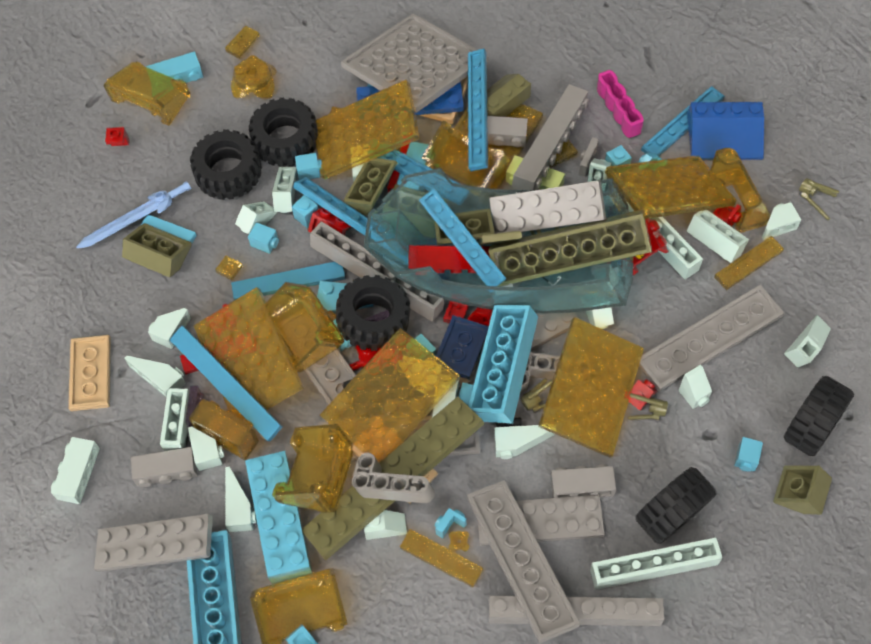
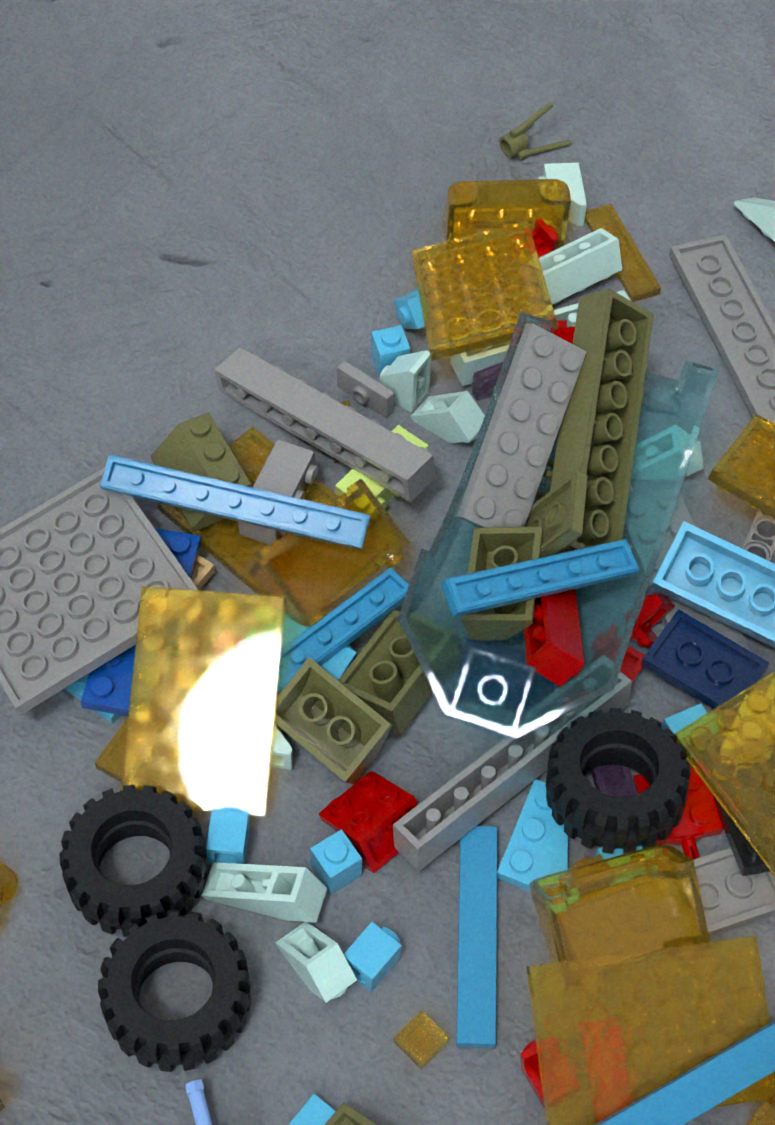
camera: 80 degrees left, 5 degrees down
(332, 204) = (368, 788): dark azure tile -> none
(620, 104) = (273, 315): dark pink brick -> none
(678, 126) = (338, 255): dark azure tile -> none
(726, 126) = (381, 202): blue slope -> none

